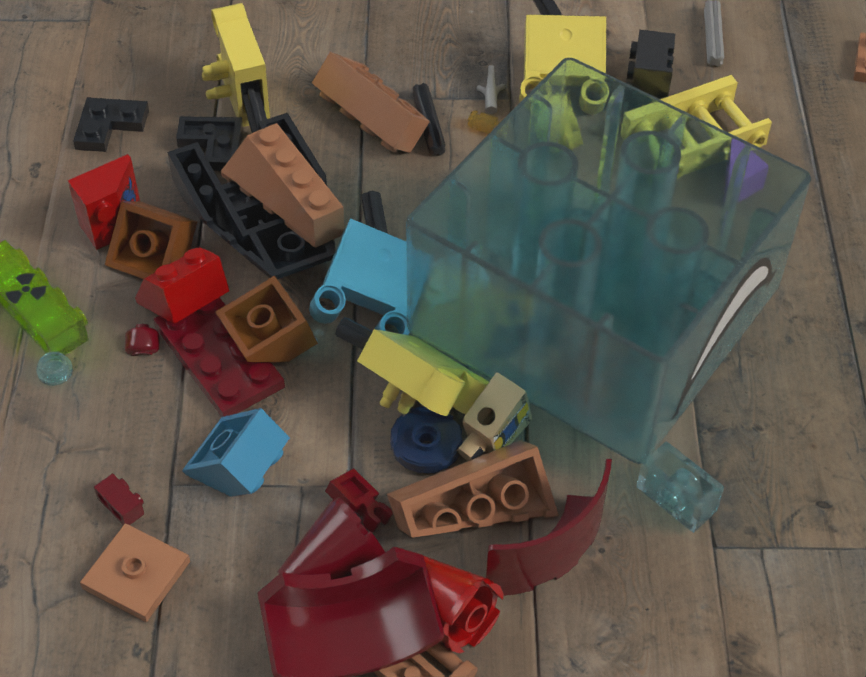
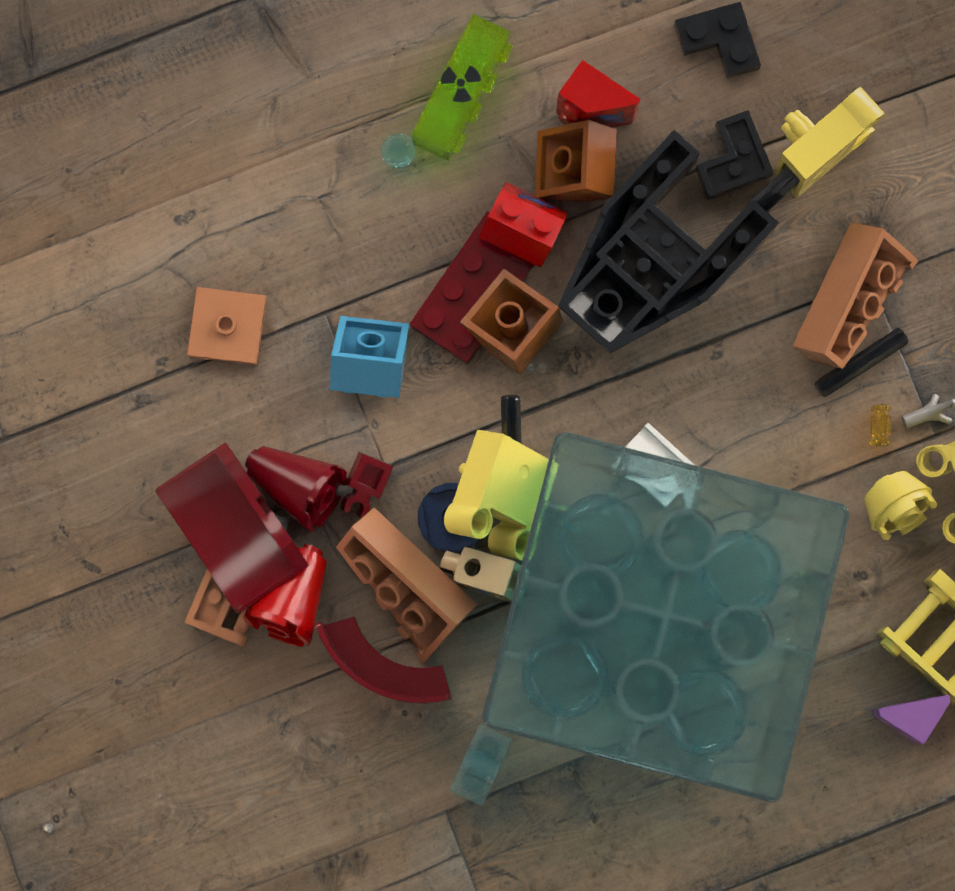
camera: 70 degrees right, 30 degrees up
(119, 500) = (287, 278): dark red piece -> none
(142, 340) = (464, 211): dark red piece -> none
(286, 185) = (670, 259): nougat wedge -> none
(367, 270) = (603, 394): medium azure piece -> none

